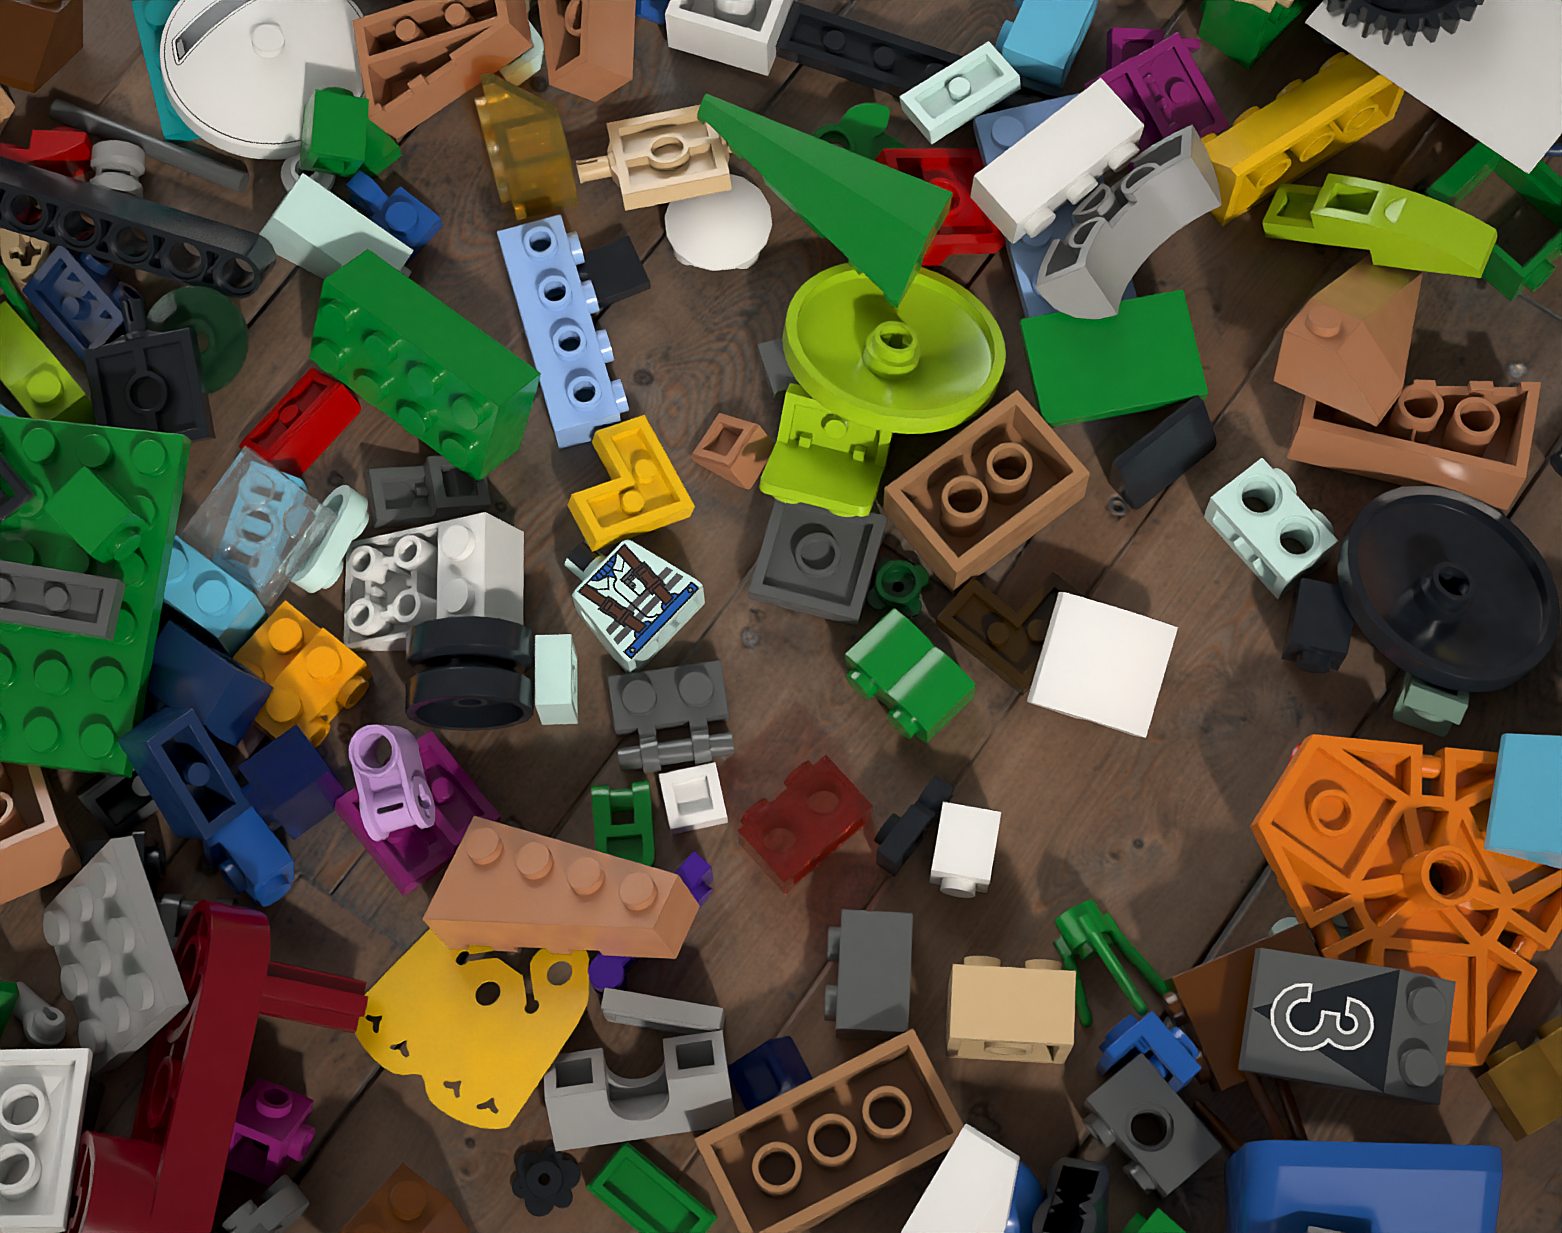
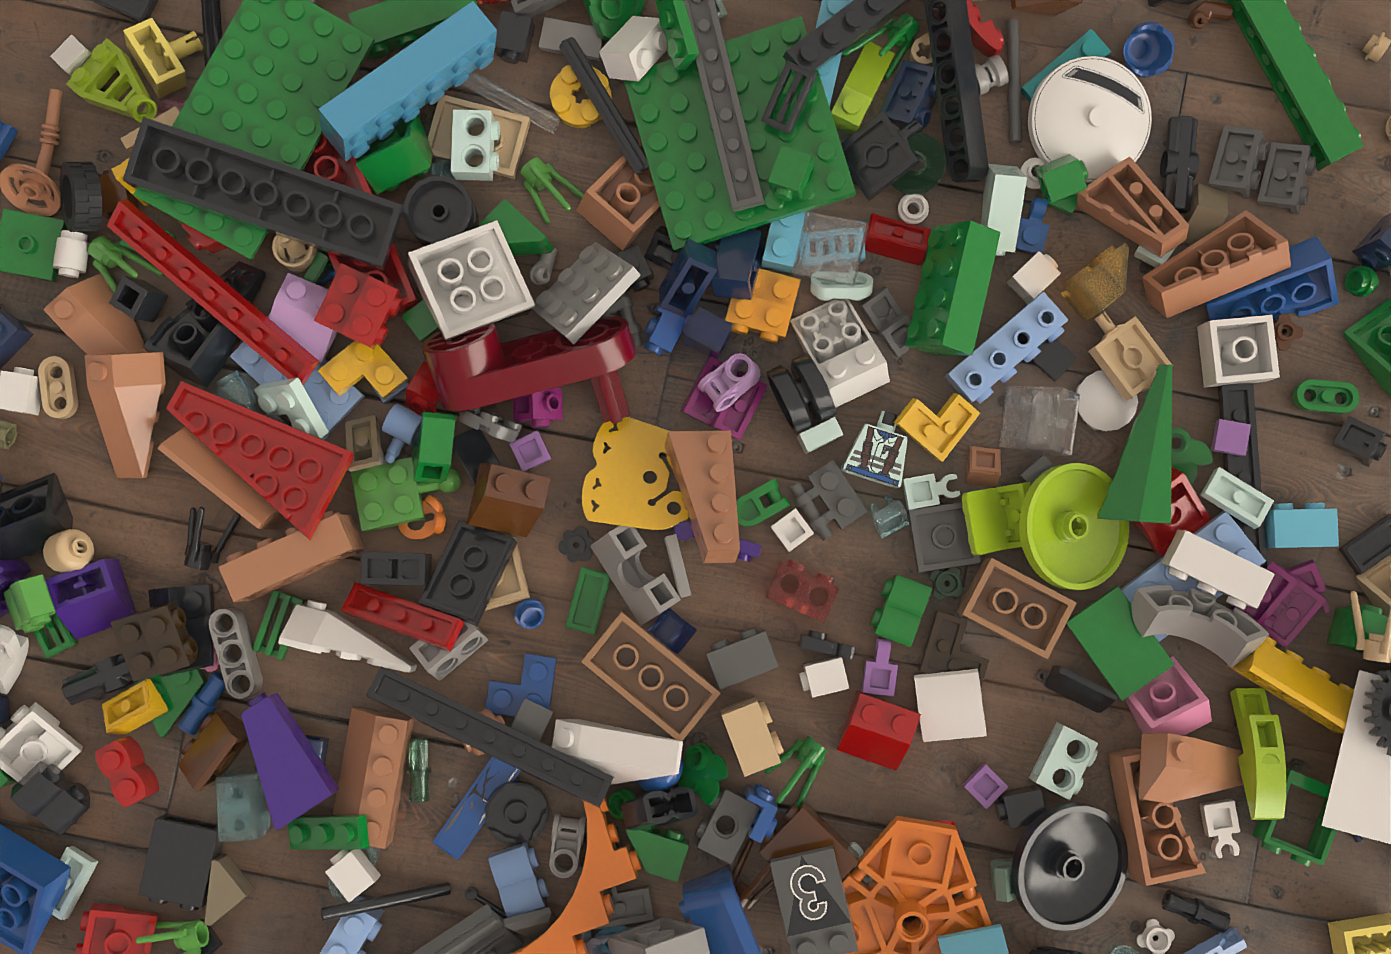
camera: 60 degrees right, 15 degrees up
(262, 364) = (916, 200): none -> white plate
(340, 1183) = (530, 451): none -> medium lavender plate
(469, 243) = (1034, 276): none -> white brick
(698, 331) = (1039, 419): none -> clear slope
(729, 554) = (924, 490): none -> light aqua plate
(747, 628) = (890, 517): none -> clear light blue tile
(862, 64) = (1230, 437): none -> medium lavender tile
(1001, 758) = (880, 675): none -> medium lavender plate
(1047, 1125) = (703, 772): none -> green plate
(1094, 801) = (878, 730): none -> red slope
(1241, 327) = (1170, 703): none -> bright pink slope
(1261, 669) = (984, 785): none -> medium lavender plate
(1468, 335) = (1220, 822): none -> white plate

